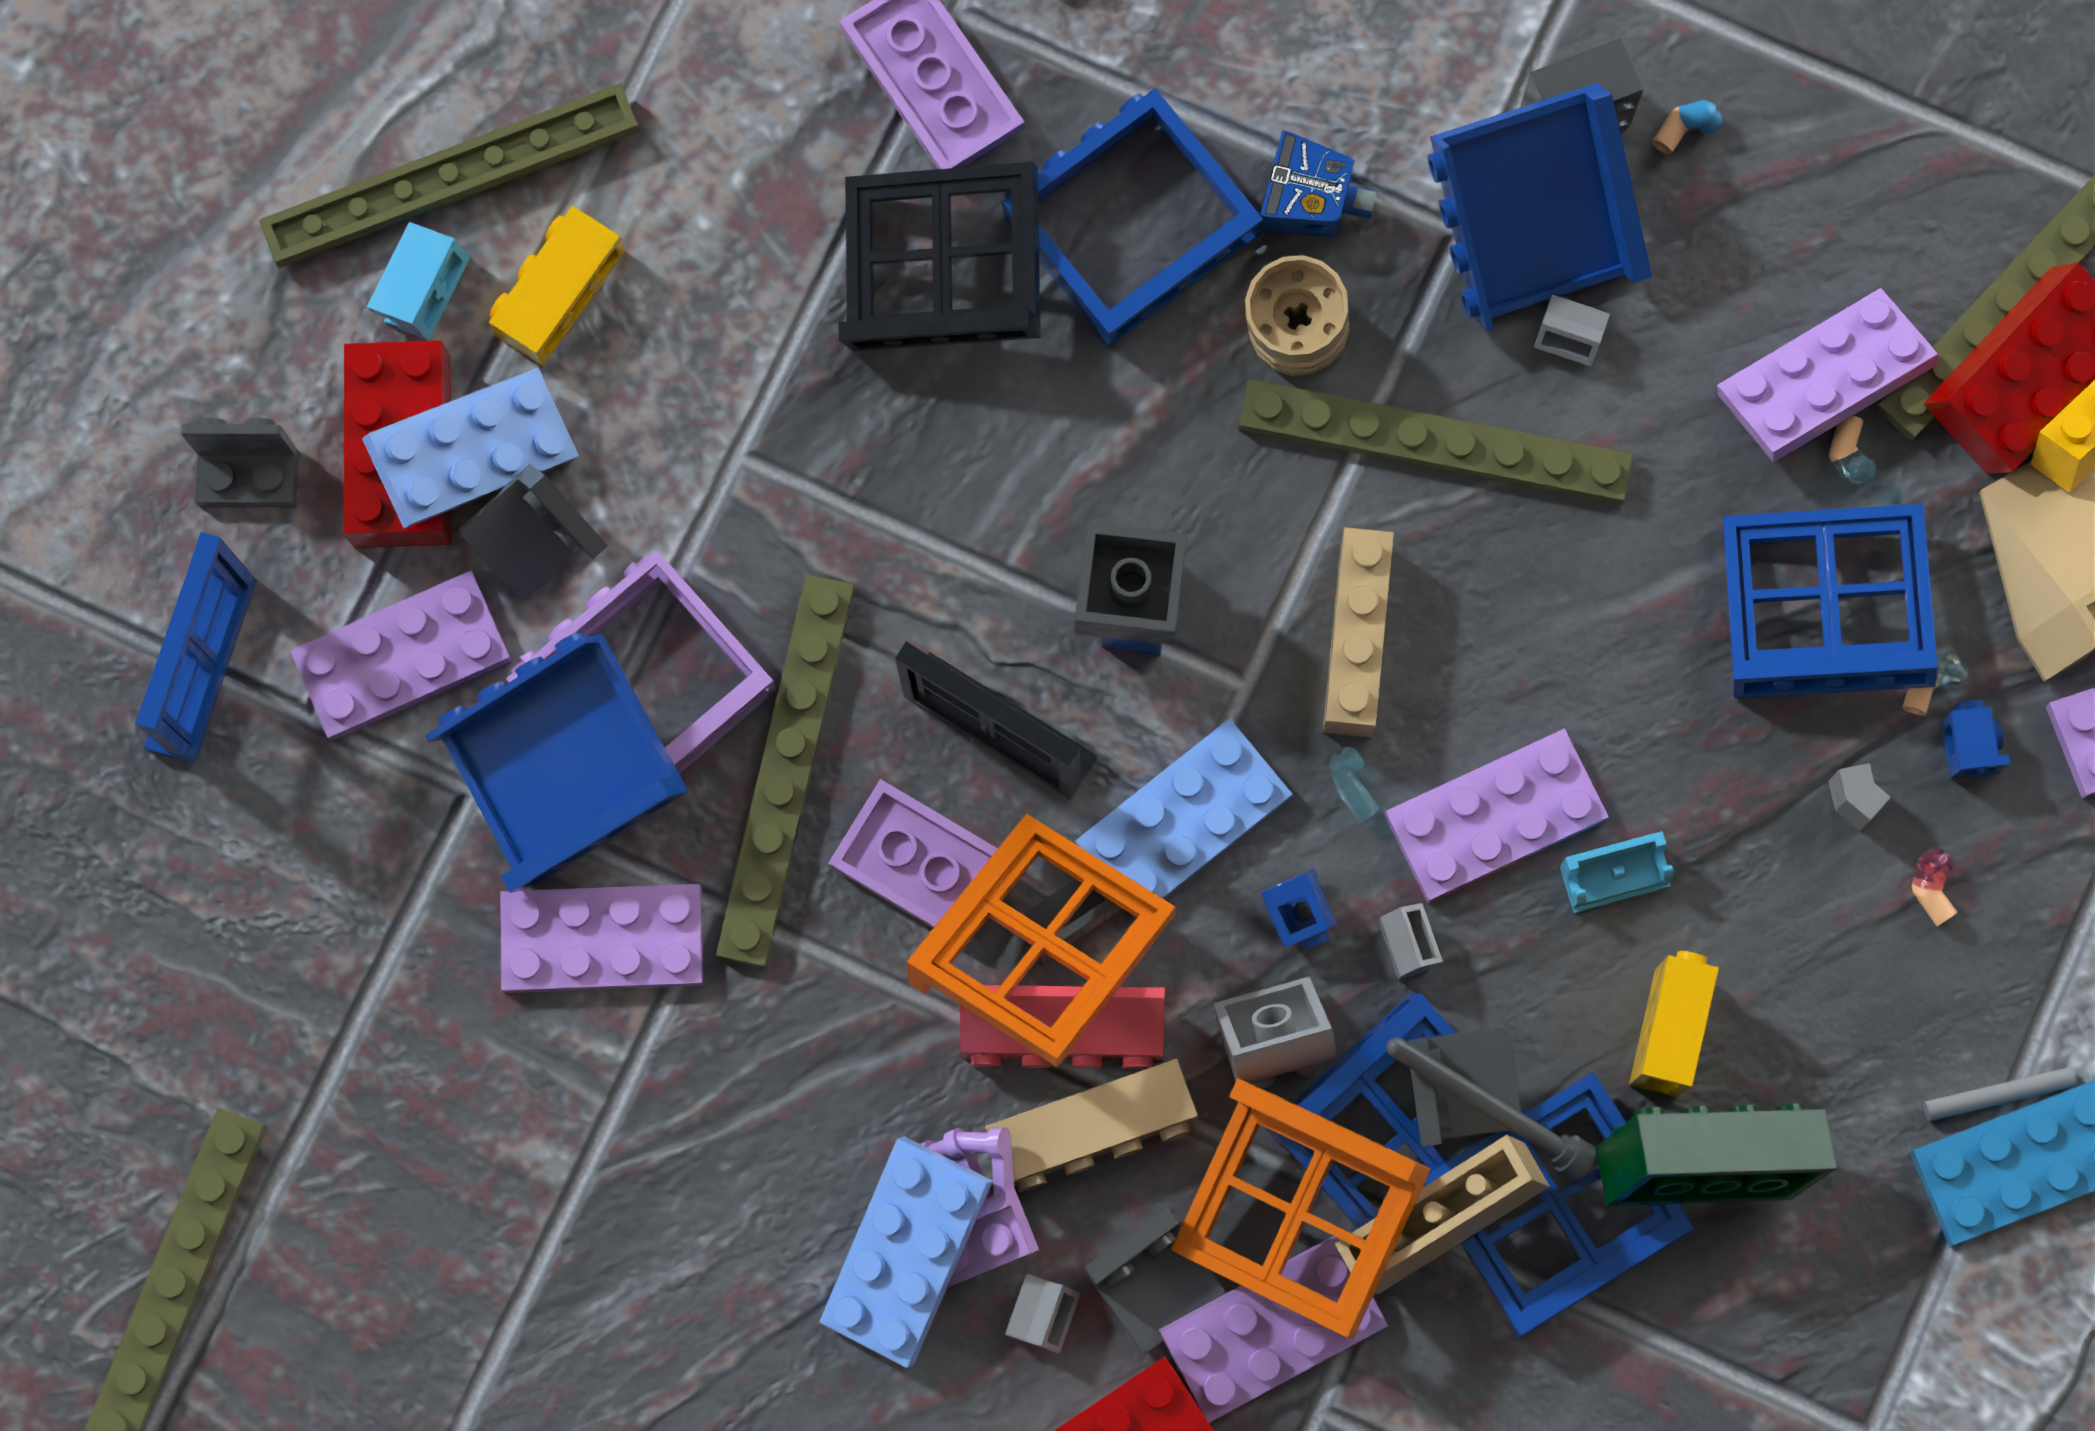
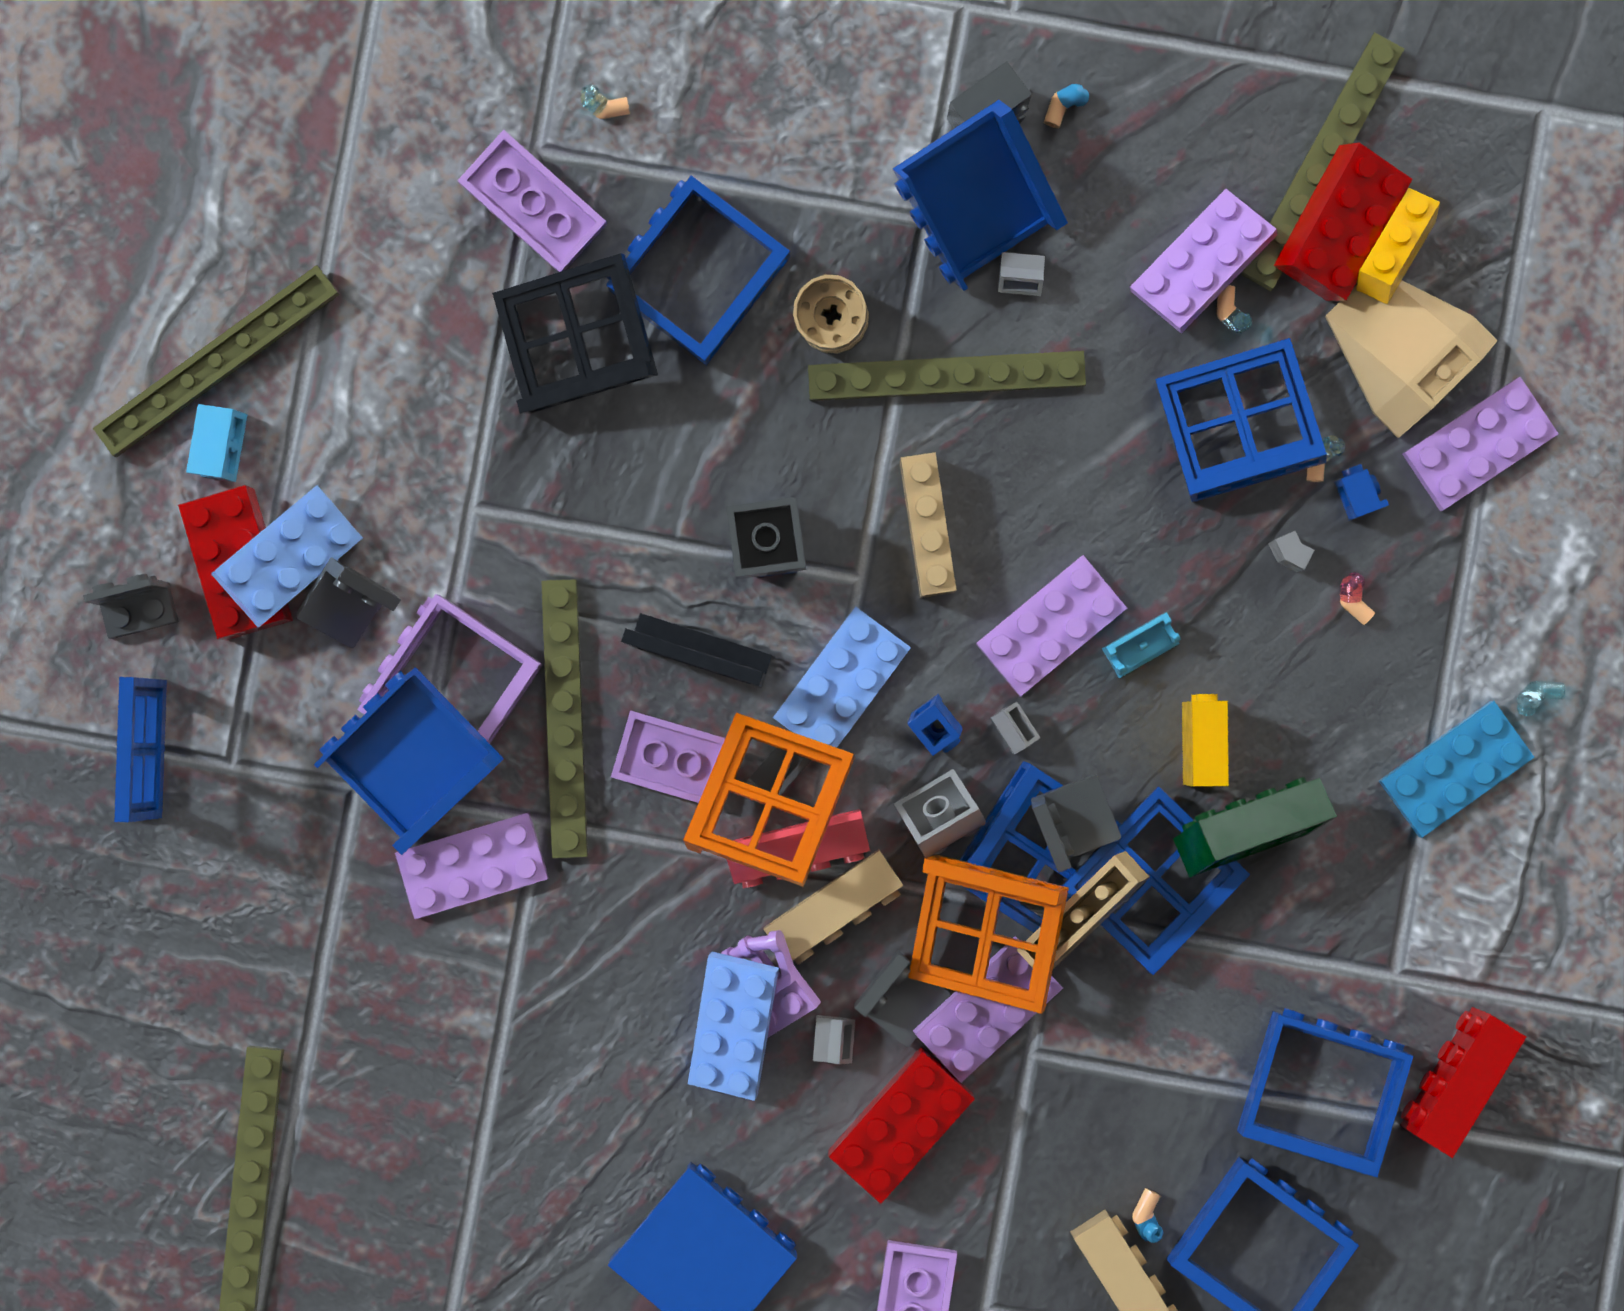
camera: 15 degrees left, 10 degrees up
(400, 656) = (280, 707): lavender plate -> none
(556, 285) = (312, 421): yellow brick -> none
(1311, 190) = (818, 219): torso -> none
(1348, 786) = (947, 632): clear light blue arm -> none
(1570, 1155) = (1156, 847): dark grey piece -> none
(1999, 1094) = (1429, 727): light grey bar -> none

